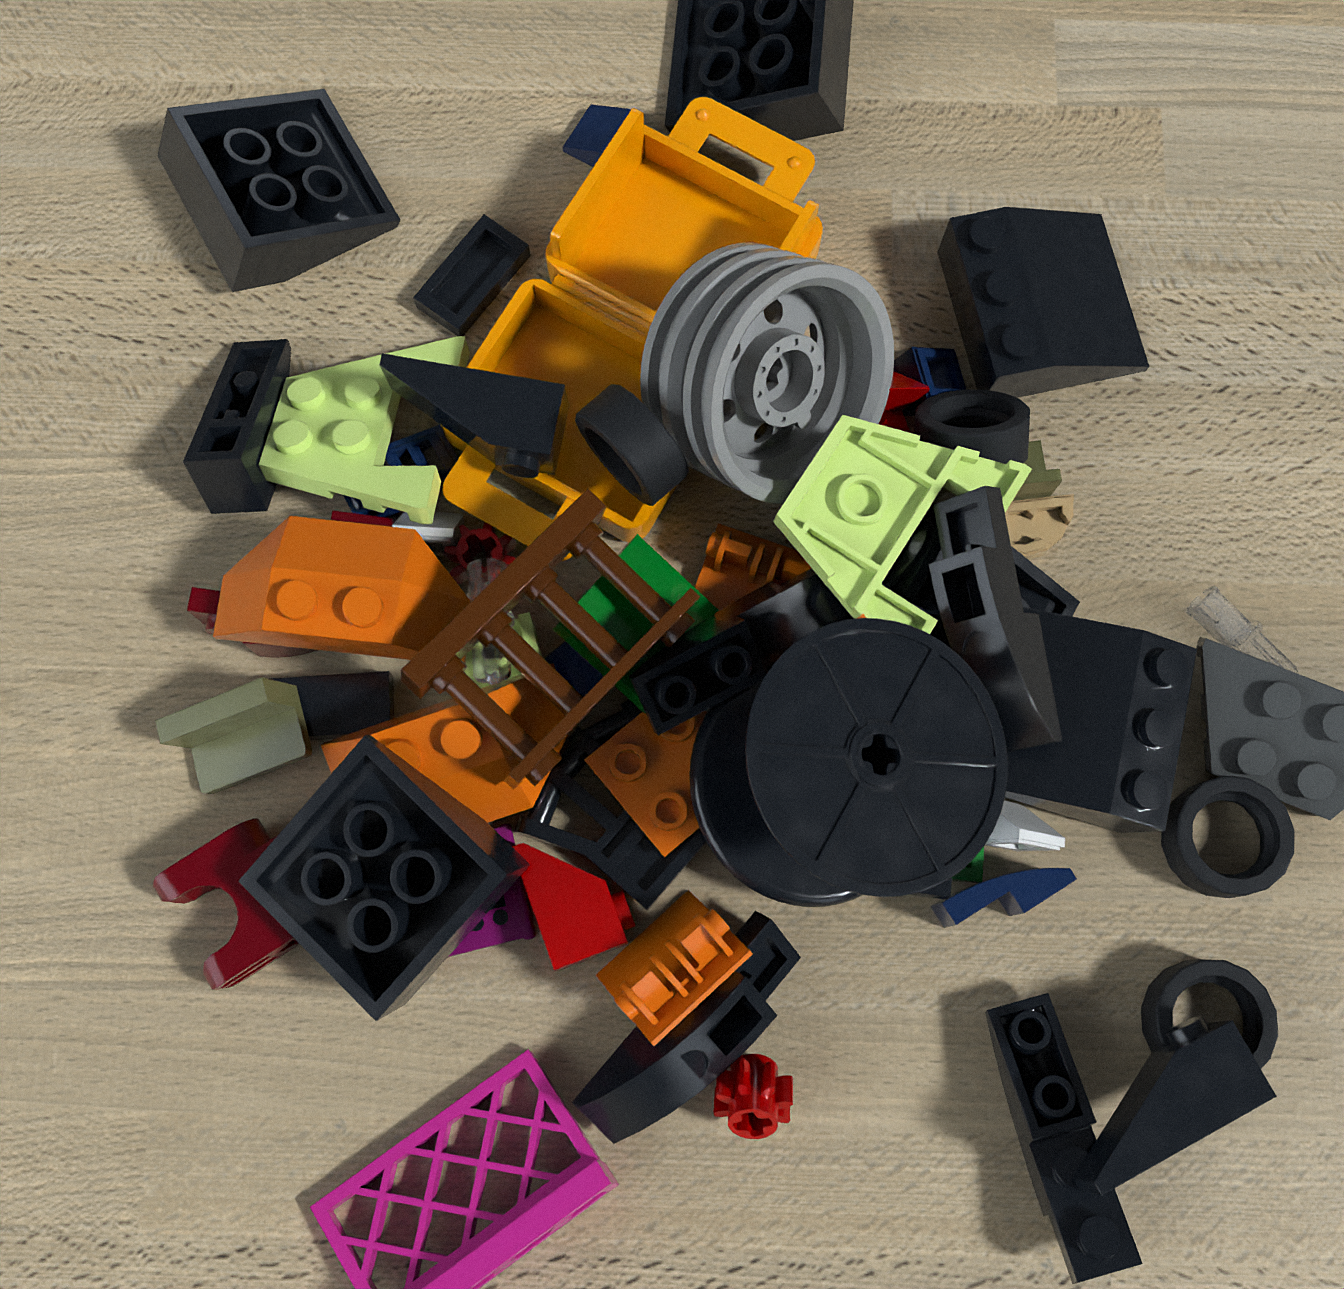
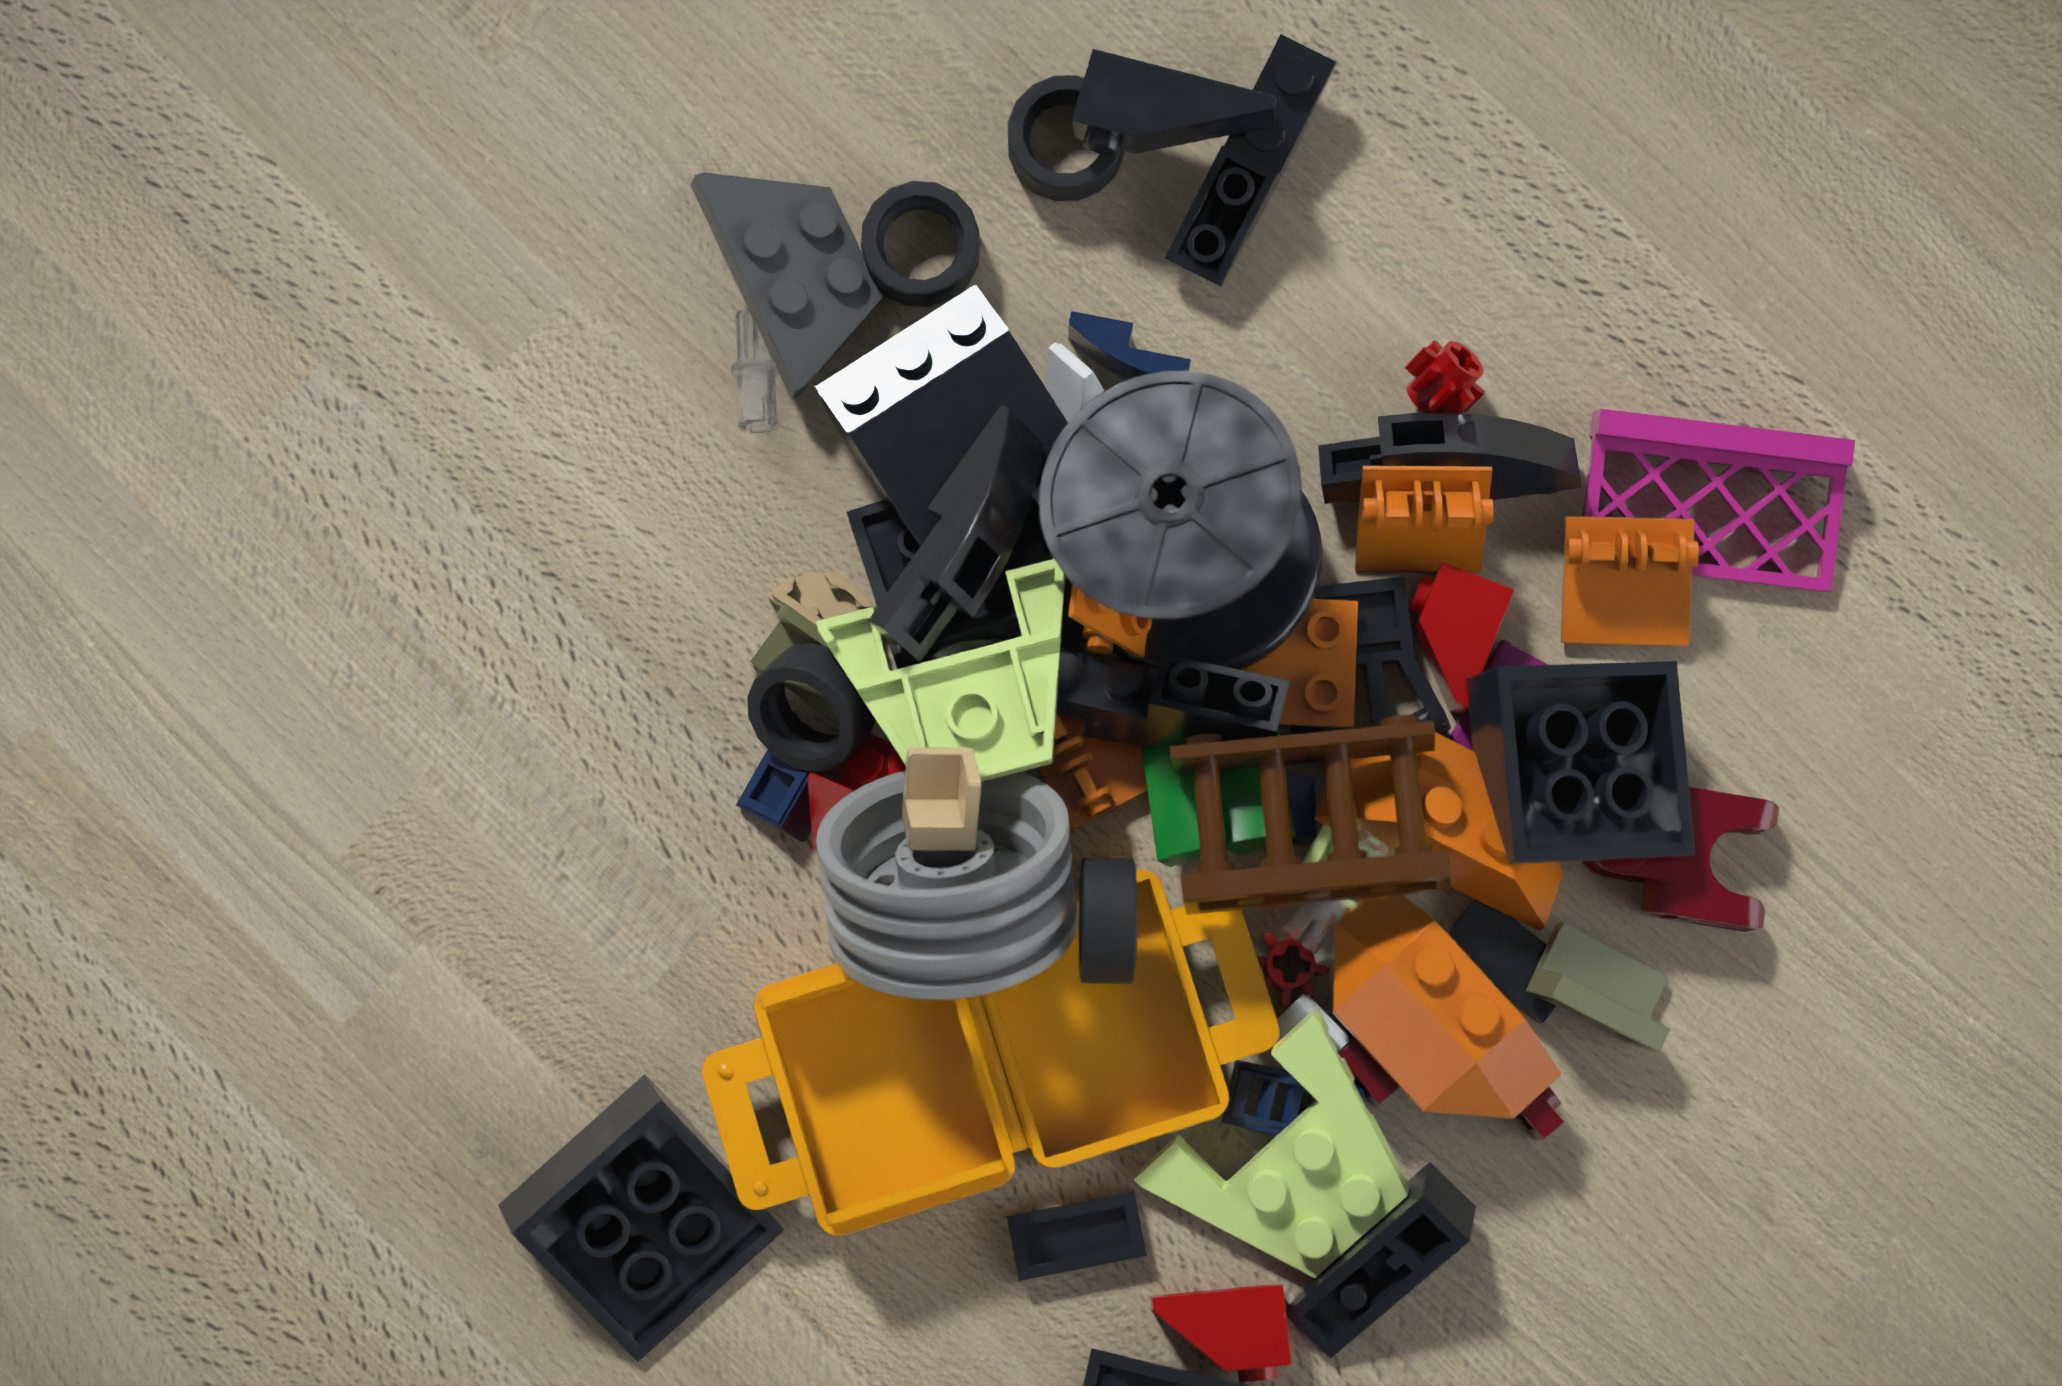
camera: 135 degrees left, 5 degrees up
(319, 297) = (1233, 1327): none -> red slope
(476, 1067) = (1627, 580): none -> orange hinge
(499, 415) = (1187, 1054): black slope -> none
(594, 132) = (849, 1269): dark blue slope -> none
(825, 409) = (941, 798): none -> tan panel
(1039, 300) = (628, 772): black slope -> none

